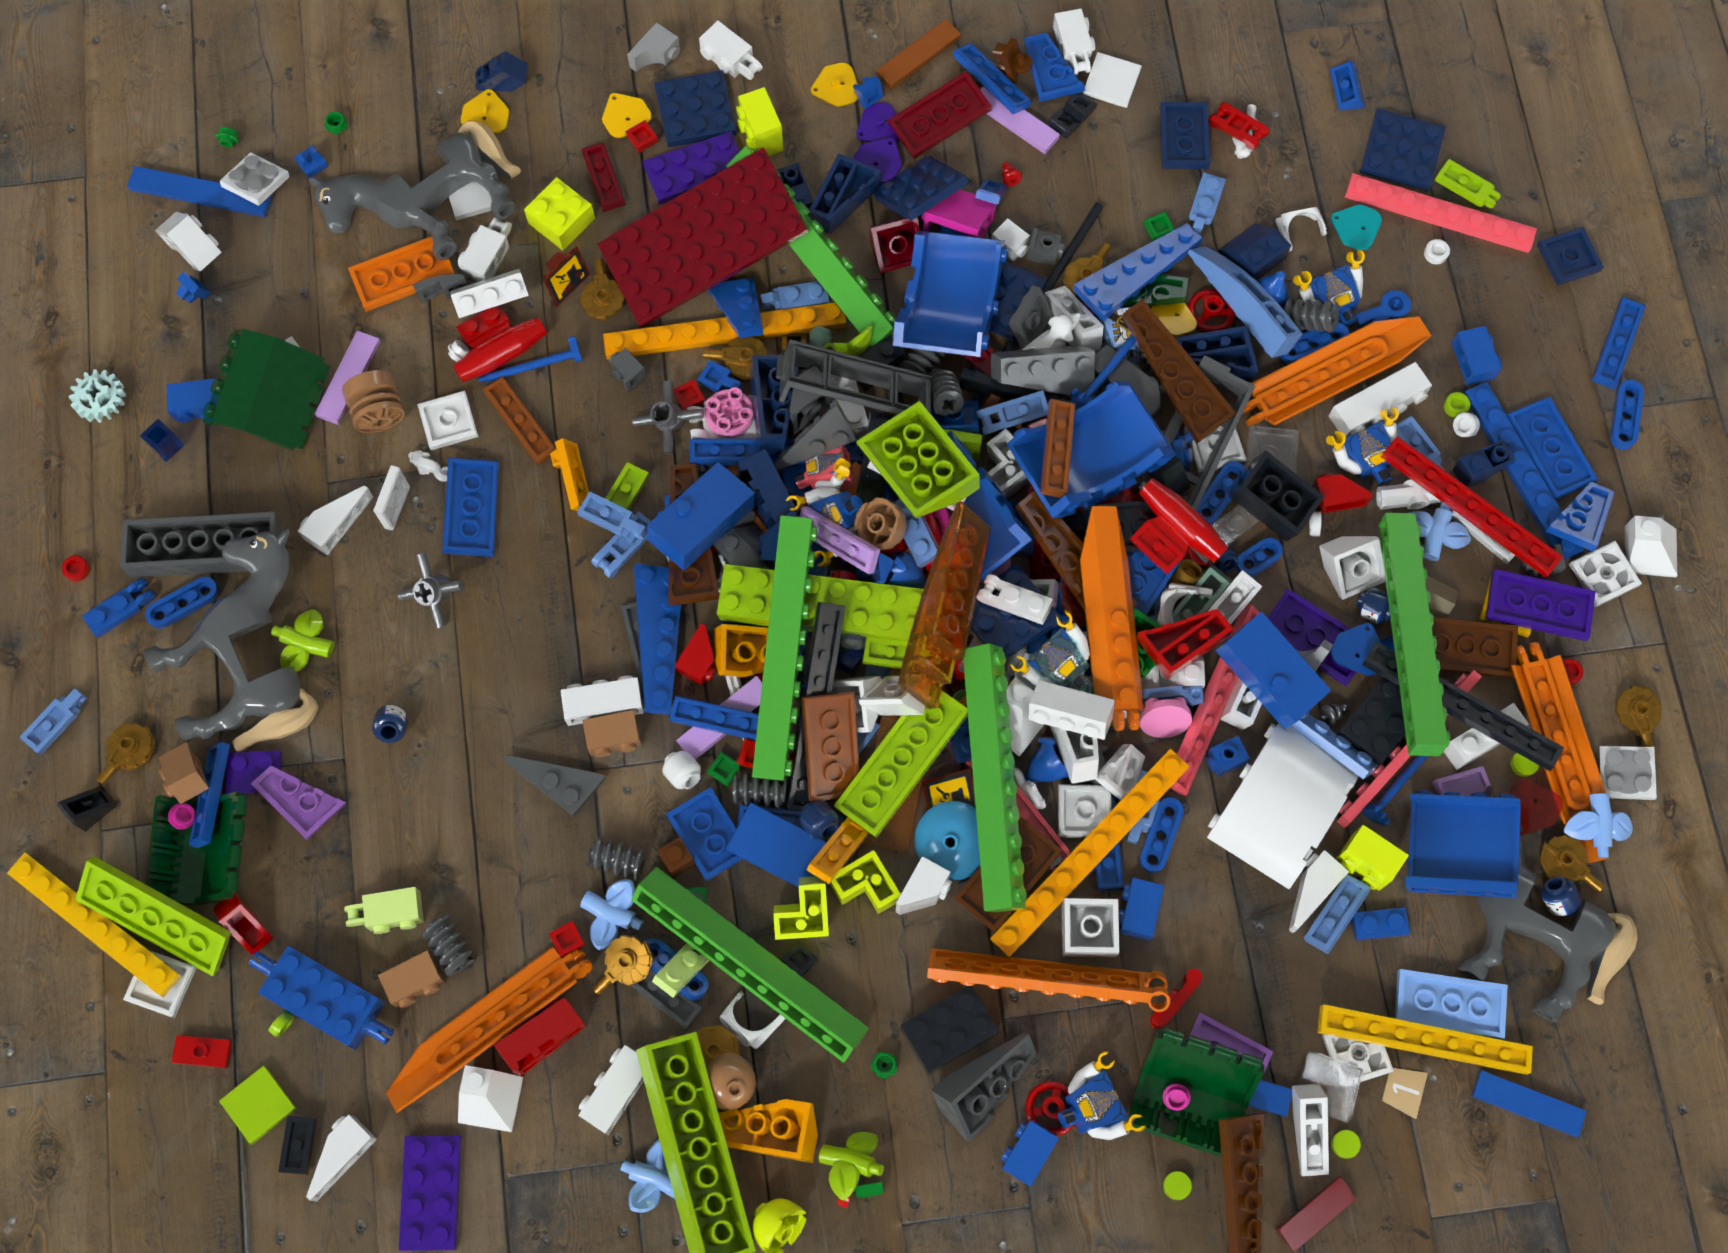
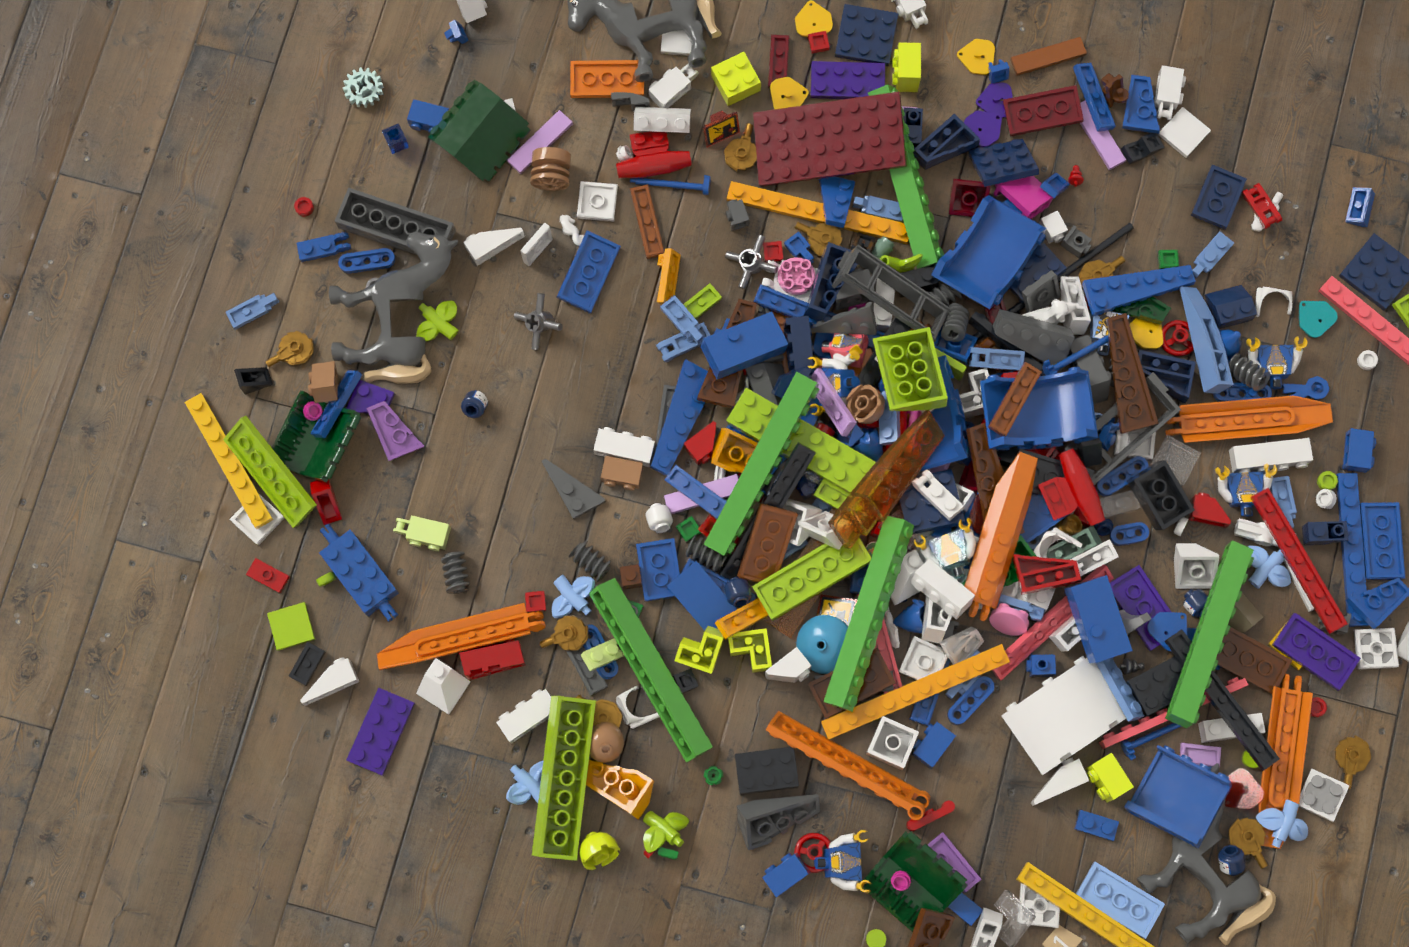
camera: 25 degrees right, 5 degrees up
(411, 979) = (422, 585): medium nougat brick -> none
(628, 201) = (790, 89): none -> yellow piece
(1337, 914) = (1068, 805): medium blue plate -> none

